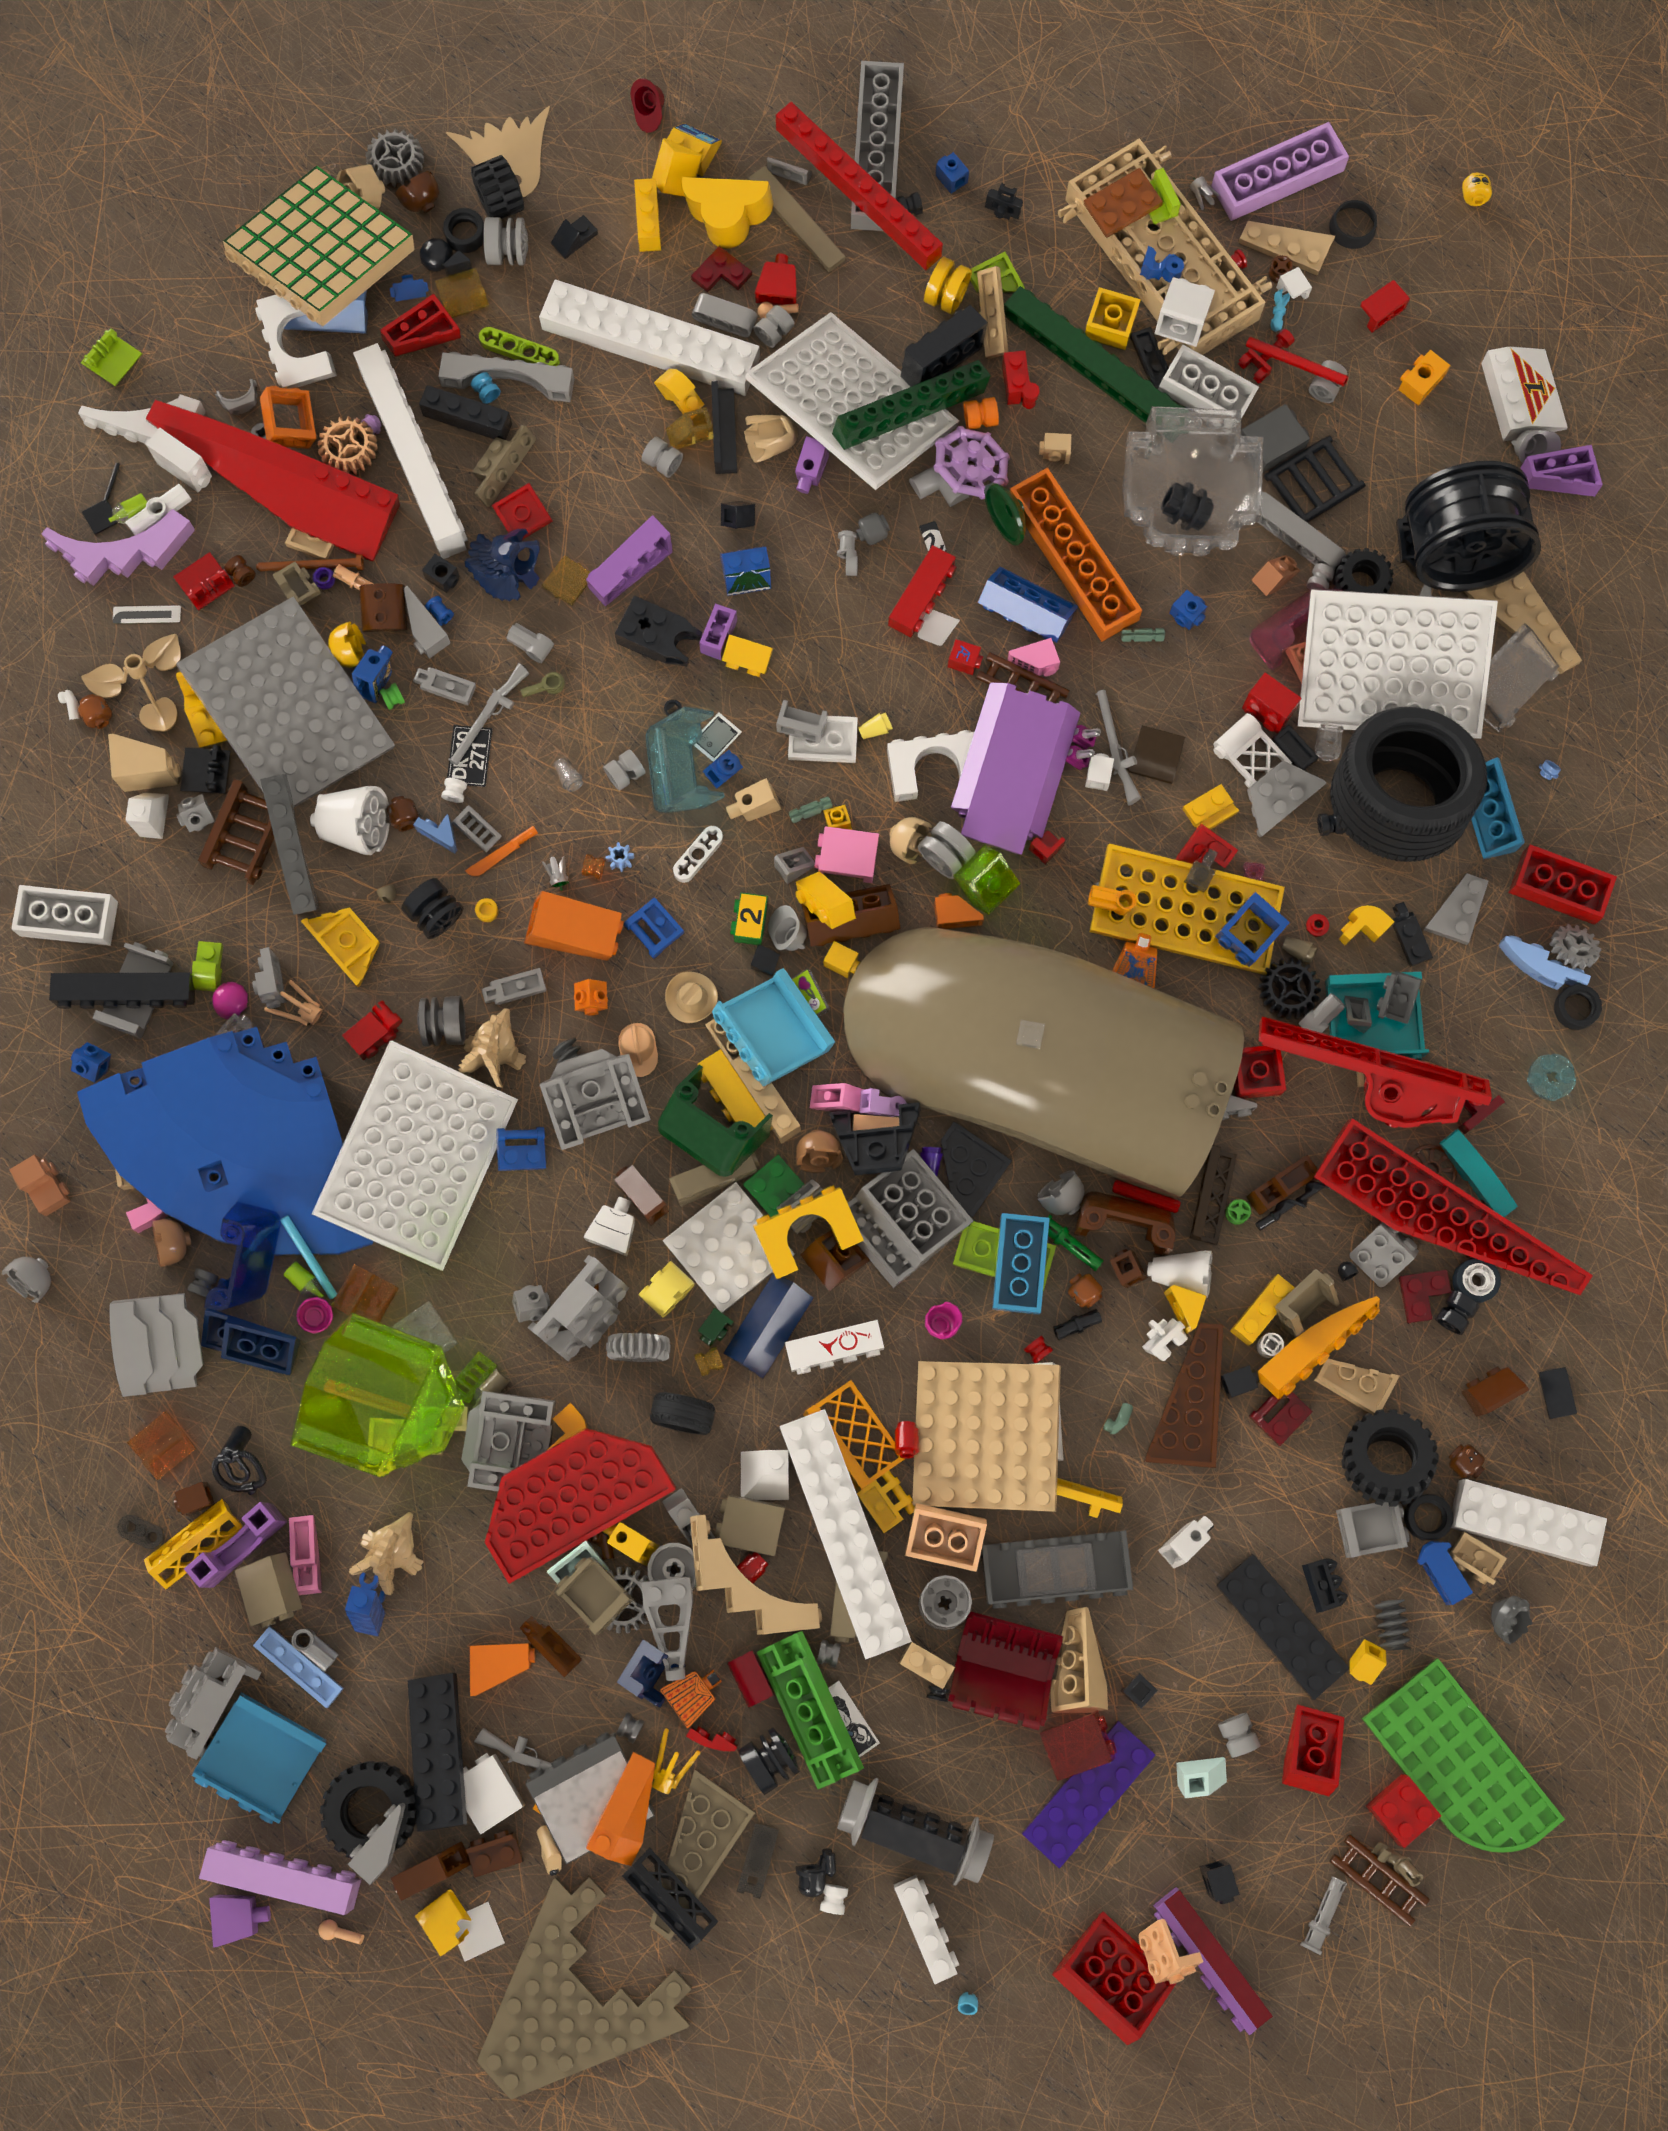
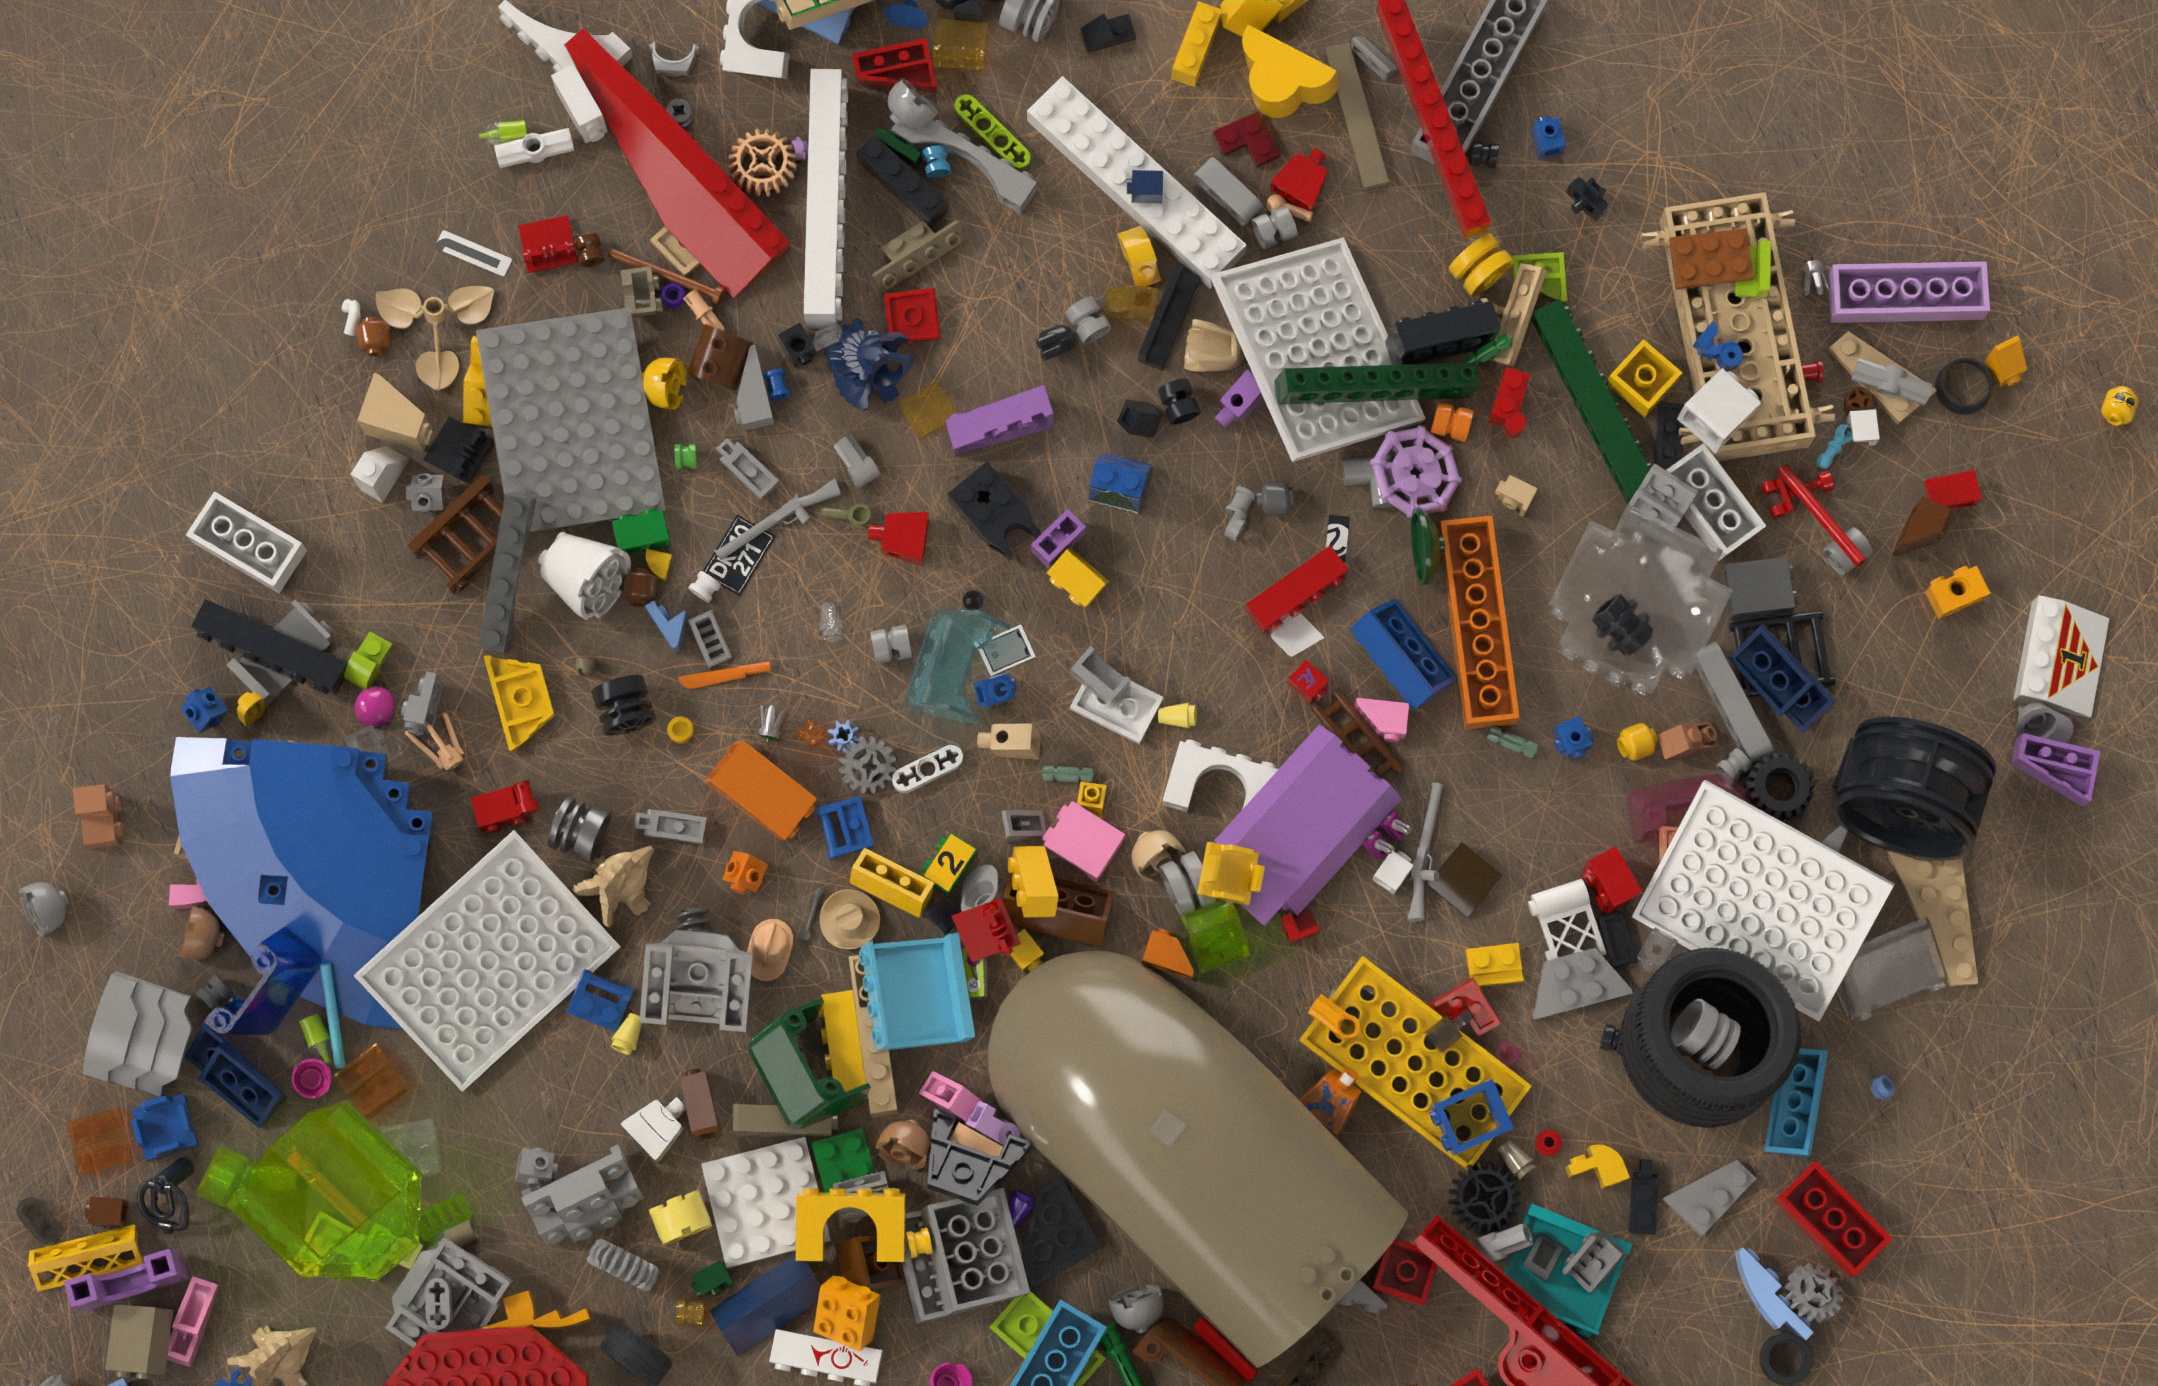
camera: 25 degrees right, 0 degrees up
(99, 514) = (474, 122): black piece -> none
(128, 1043) = (250, 708): none -> yellow plate
(152, 546) = (510, 183): lavender arch -> none
(210, 1409) = (164, 1126): none -> blue panel
(278, 1425) = (224, 1176): none -> clear neon green brick
(287, 436) = (707, 129): orange window -> none
(373, 673) = (677, 423): blue torso -> none
(384, 768) = (642, 531): none -> green brick
(408, 788) = (658, 563): none -> yellow tile
(445, 350) = (909, 106): none -> light grey cylinder
(459, 388) = (907, 152): none -> dark green plate
(462, 555) = (827, 336): none -> clear tile
(497, 1449) = (445, 1303): none -> light grey beam
(556, 1166) = (627, 1035): none -> light yellow cone
(593, 683) = (902, 536): none -> red torso
(601, 1418) = (555, 1321): none -> light orange slope
(644, 483) = (1055, 341): none -> black piece
(647, 861) = (868, 754): none -> light grey gear
(661, 331) = (1146, 186): none -> dark blue brick
(661, 1024) = (806, 935): none -> dark grey hinge
(712, 952) = (891, 882): none -> yellow brick
(765, 490) = (1178, 399): none -> black wheel
(805, 954) = (986, 930): none -> red hinge
(836, 1302) = (846, 1313): none -> light orange brick
(868, 1221) = (919, 1242): none -> yellow wheel
(978, 822) = (1230, 873): none -> yellow panel
(985, 346) = (1490, 350): none -> green axle
(1172, 392) = (1663, 496): none -> light grey slope
(1238, 592) = (1637, 741): none -> yellow head
(1300, 241) = (1892, 381): none -> light grey piece
(1327, 495) = (1782, 679): none -> dark blue slope
(1375, 337) = (1925, 524): none -> reddish brown slope
(1379, 190) = (2007, 362): none -> light orange slope
(1407, 779) = (1705, 1034): none -> light grey wheel

